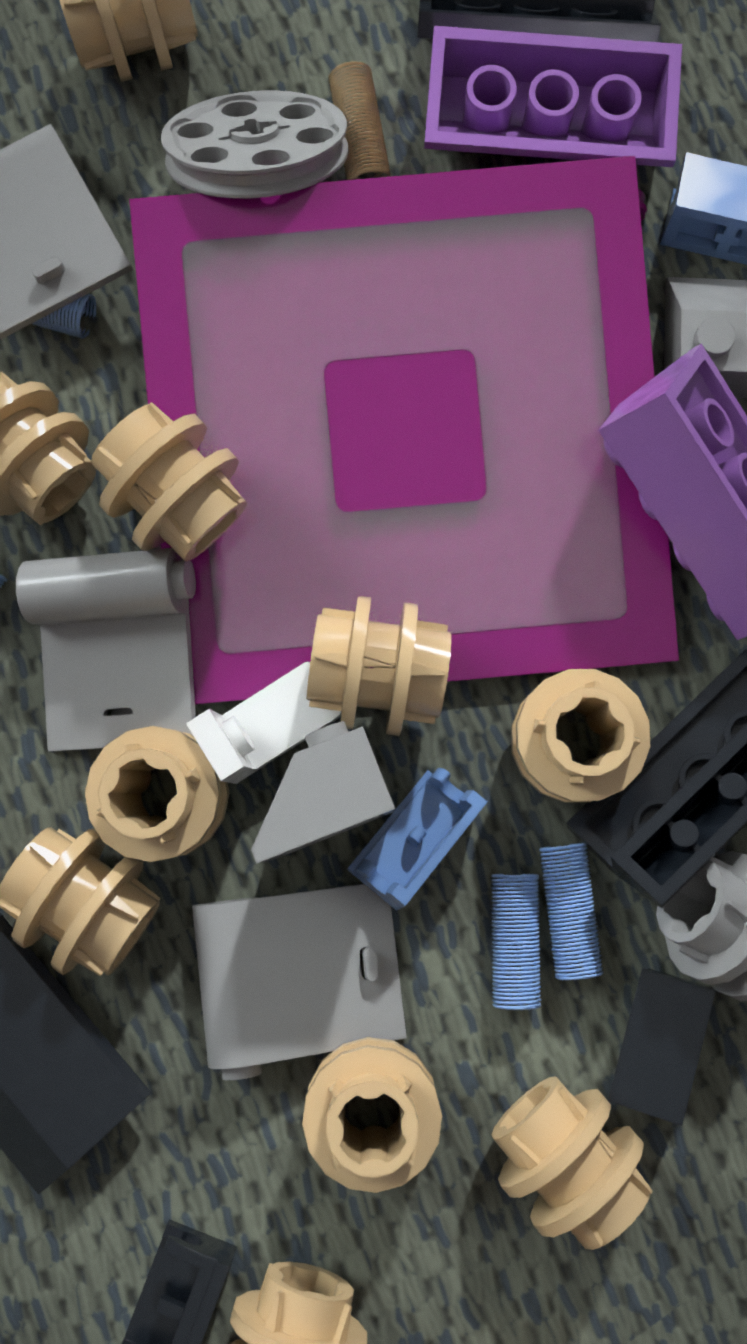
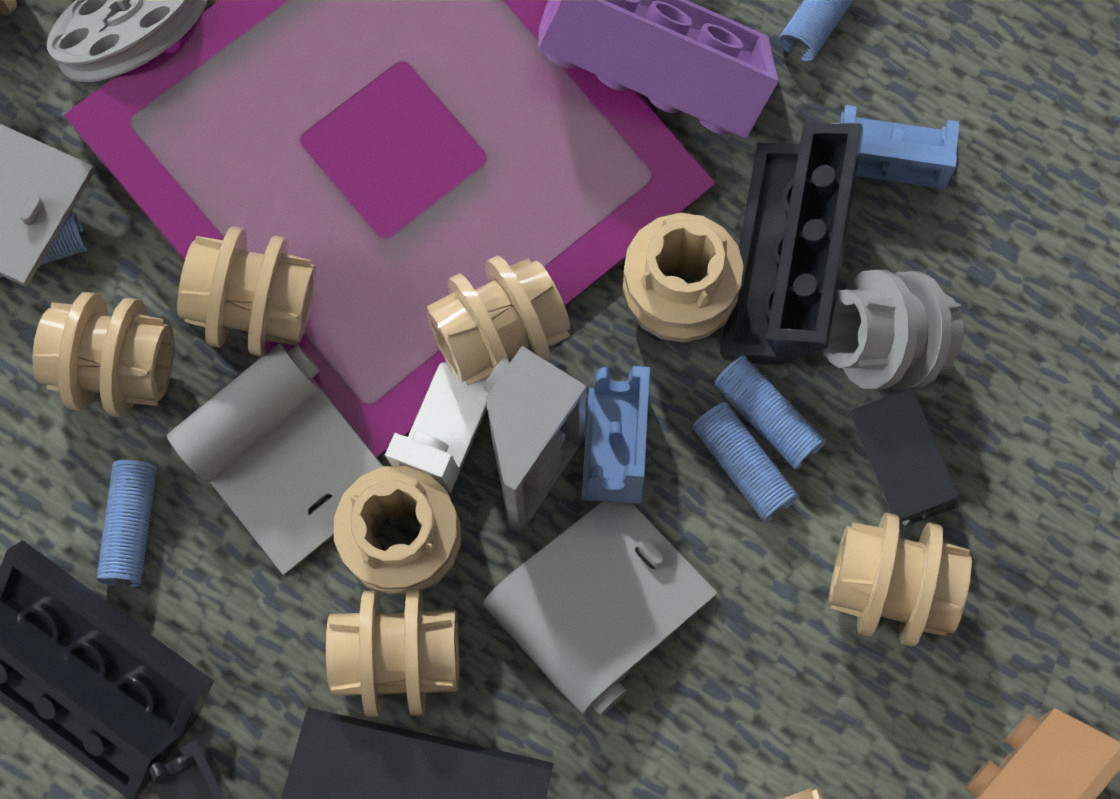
camera: 35 degrees left, 10 degrees down
(375, 1156) = (761, 627): tan piece -> none

